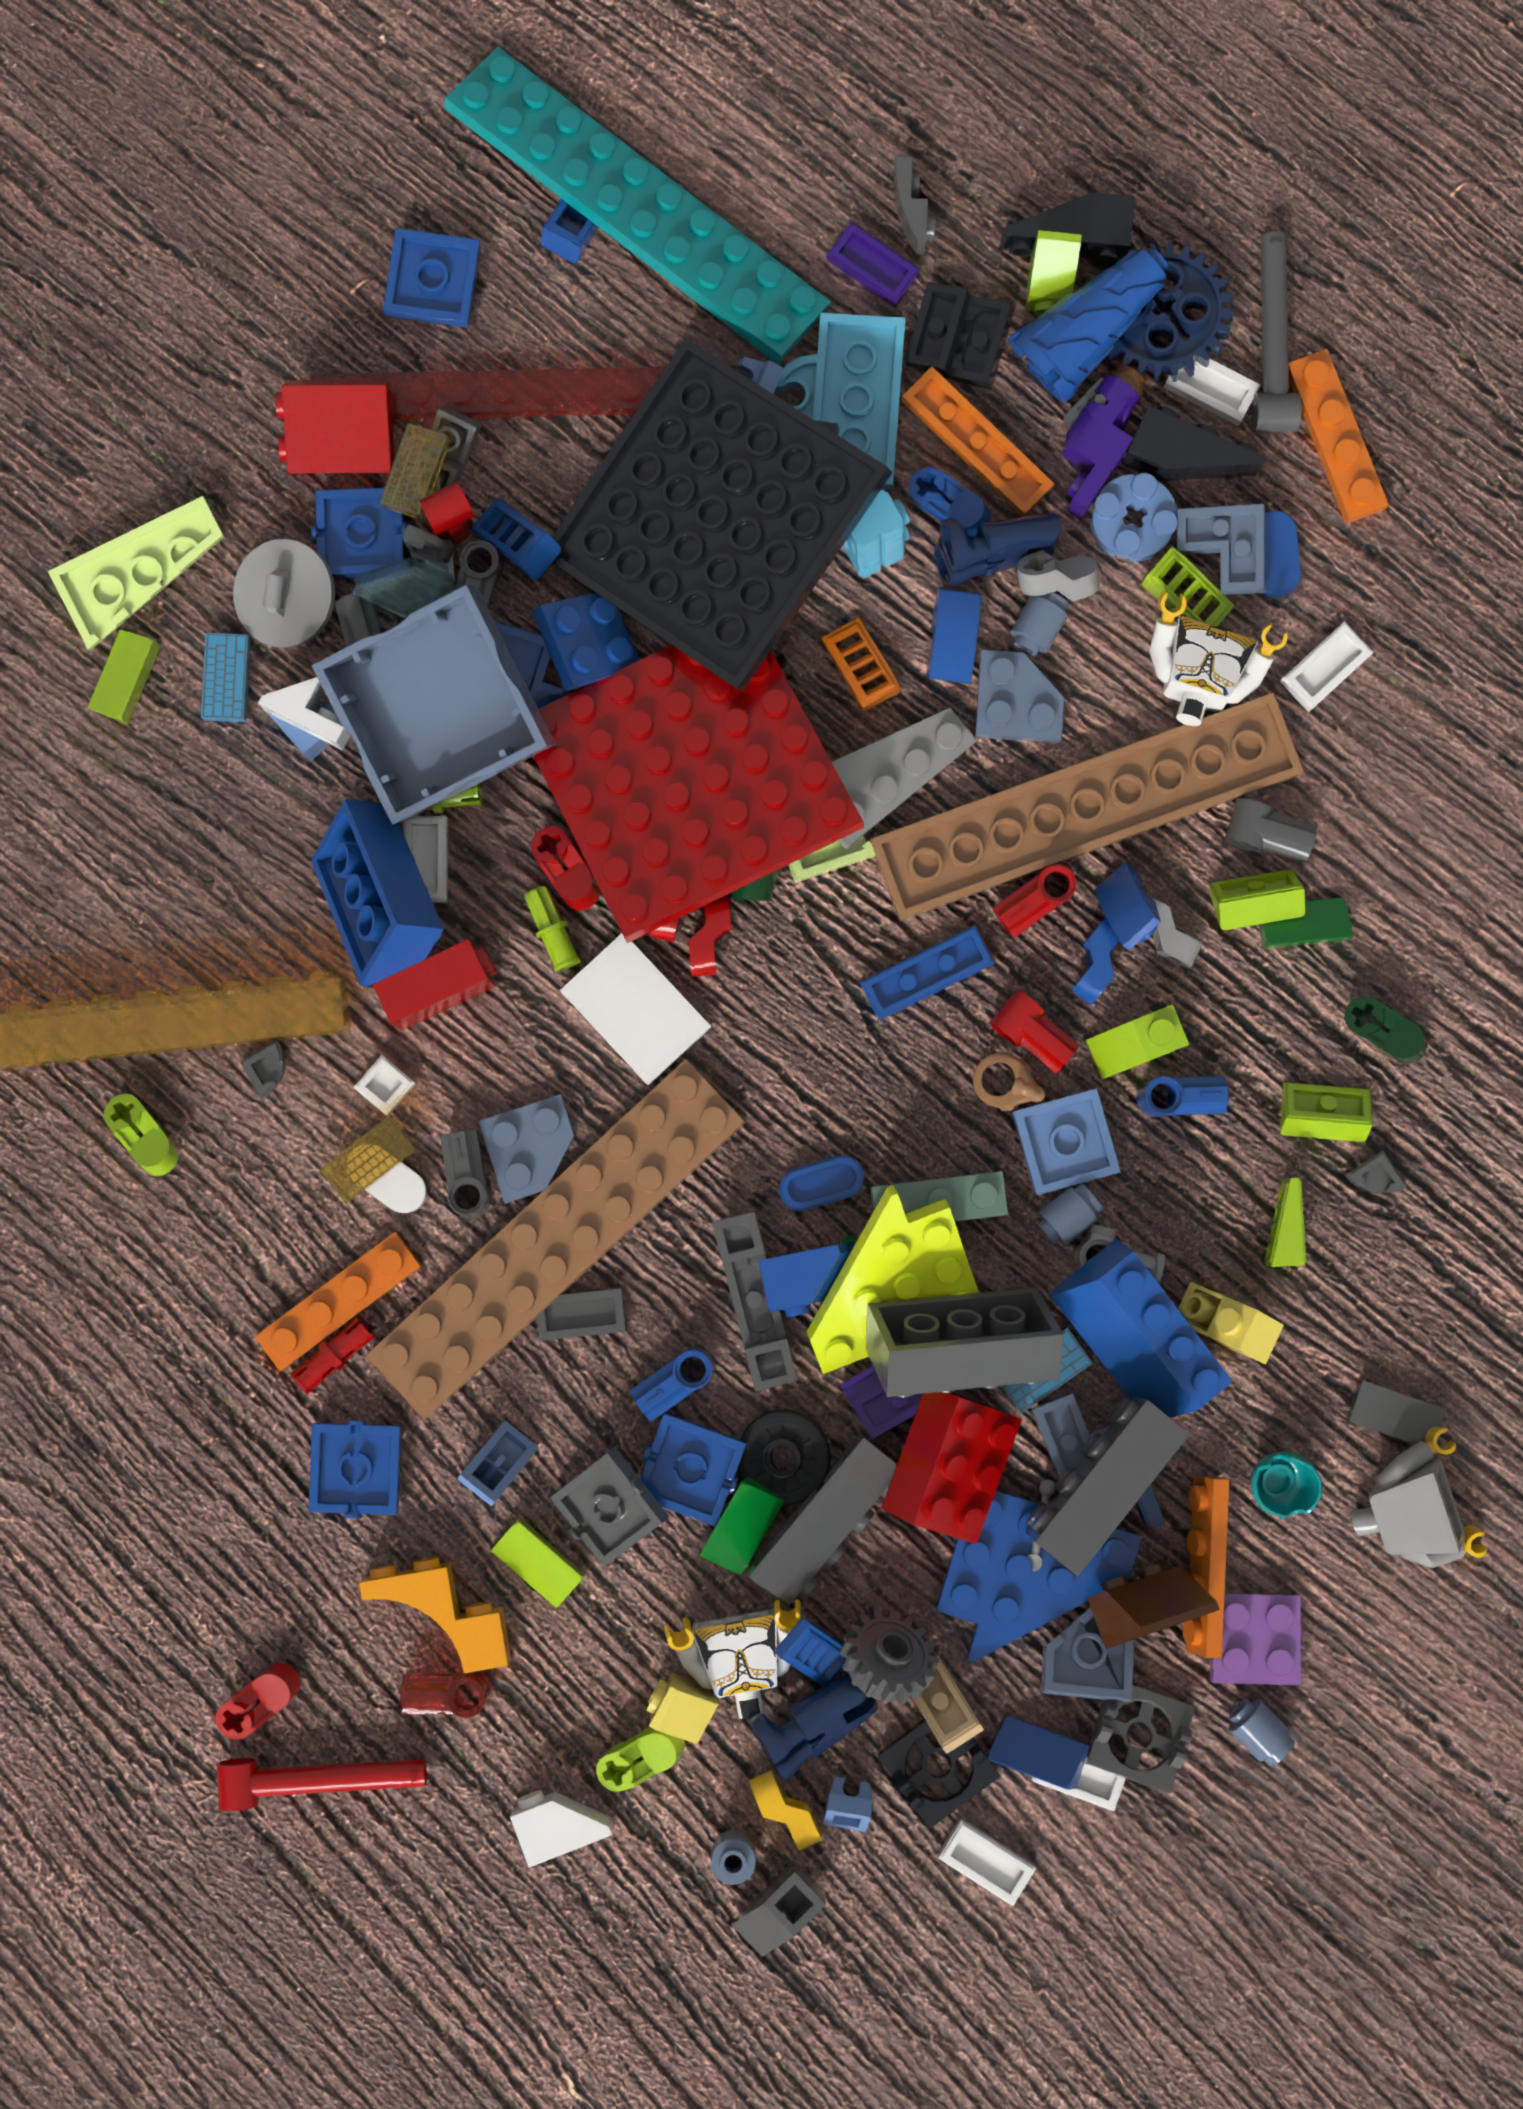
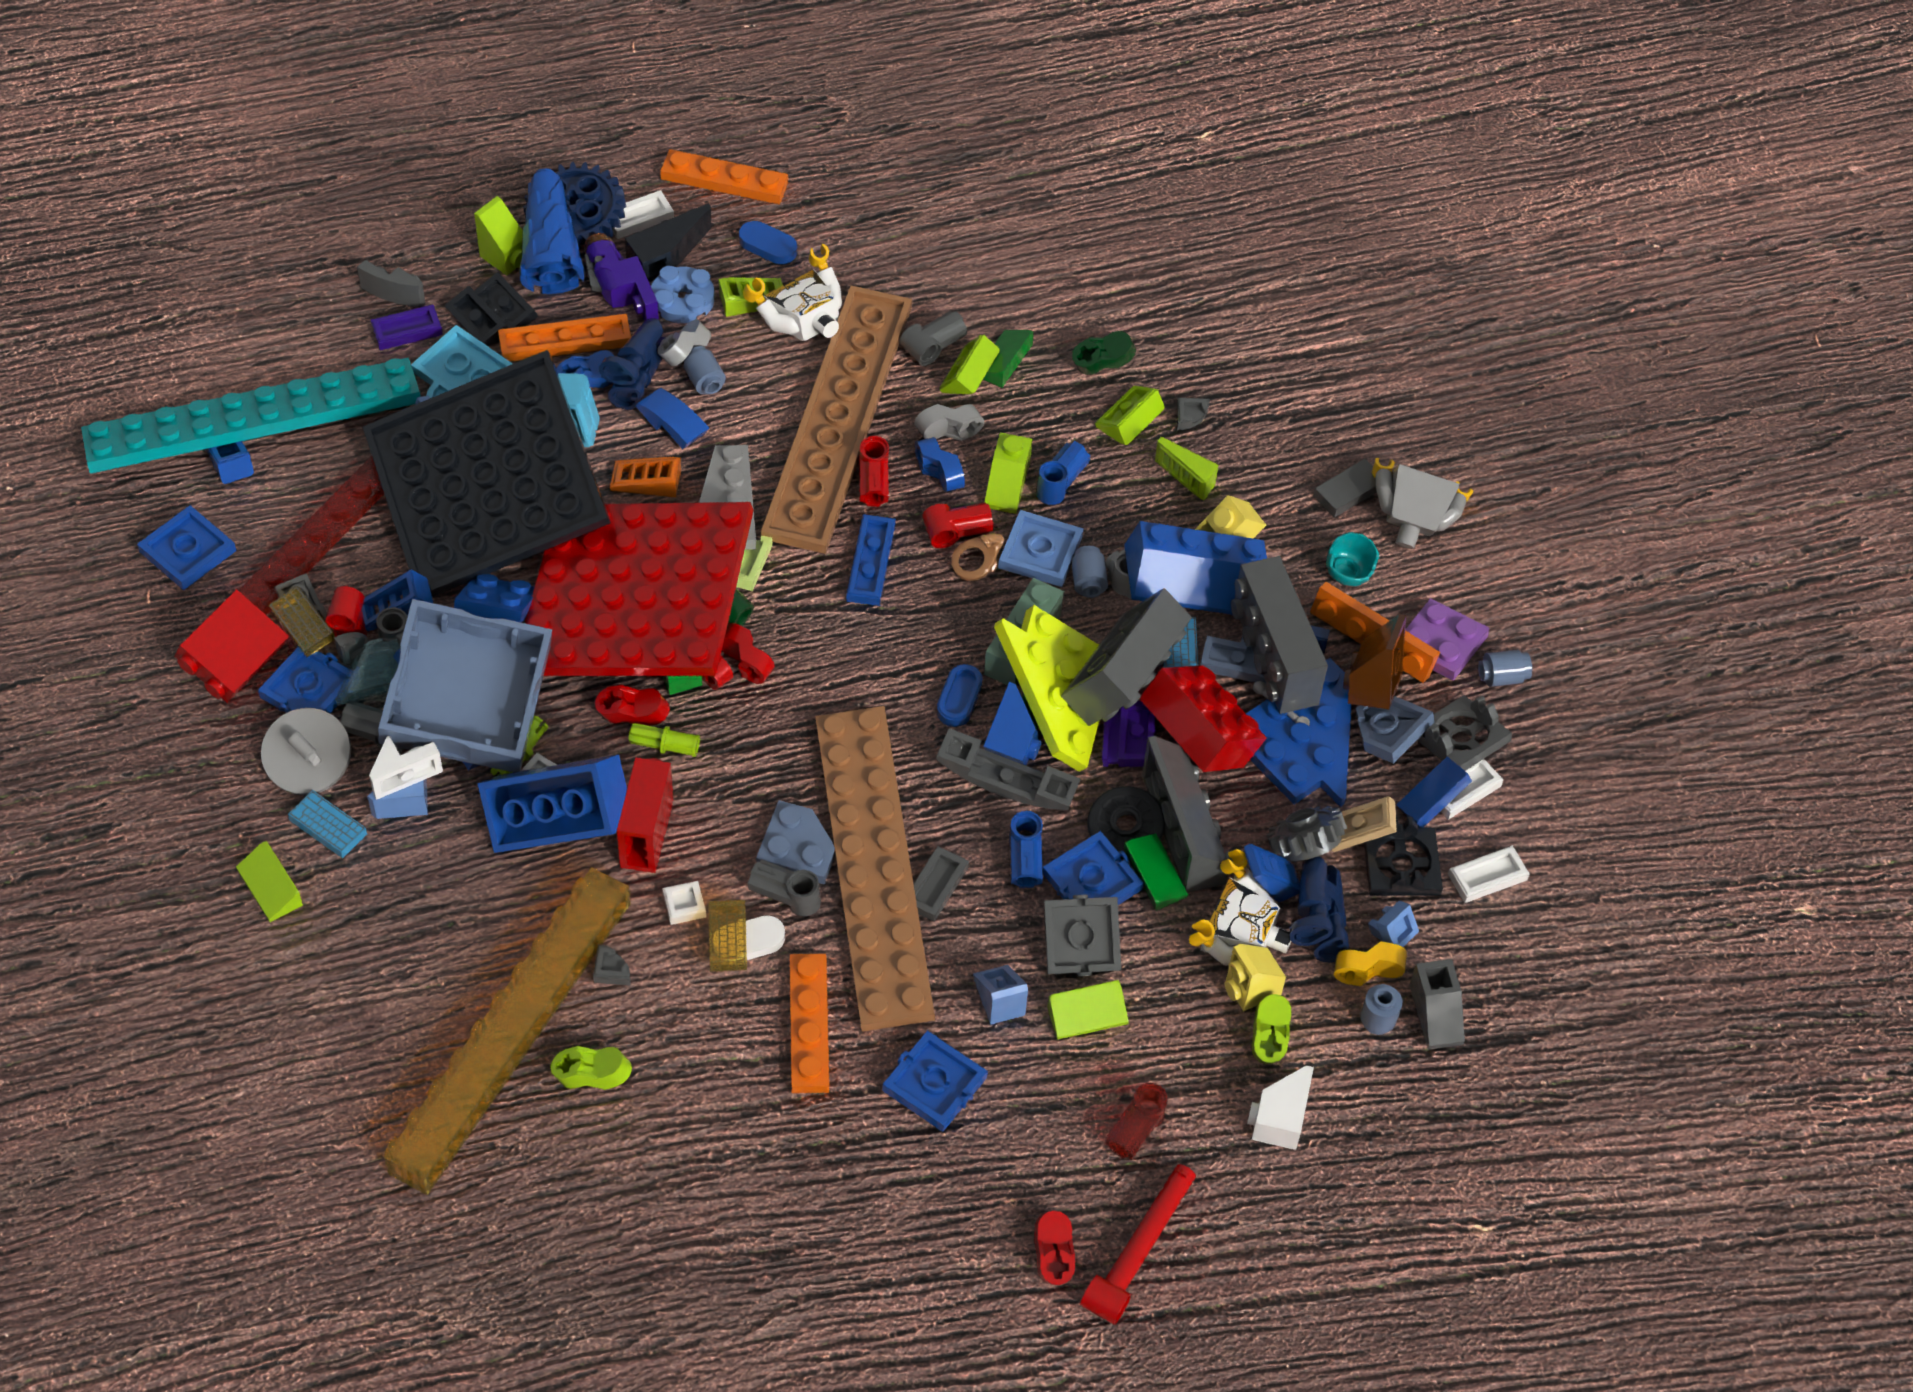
camera: 55 degrees left, 30 degrees down
(127, 572) = (203, 835): yellowish green wing -> none
(332, 1355) = (844, 1047): red pin -> none
(430, 1587) = (1108, 1076): light orange arch -> none
(635, 1009) = (758, 727): white tile -> none
(1016, 700) = (740, 413): sand blue plate -> none
(1099, 217) = (465, 239): black slope -> none
(1127, 906) = (919, 420): blue slope -> none
(1234, 533) = (742, 246): sand blue plate -> none
(1275, 408) = (678, 191): dark grey piece -> none
(1326, 666) = (857, 258): white tile -> none

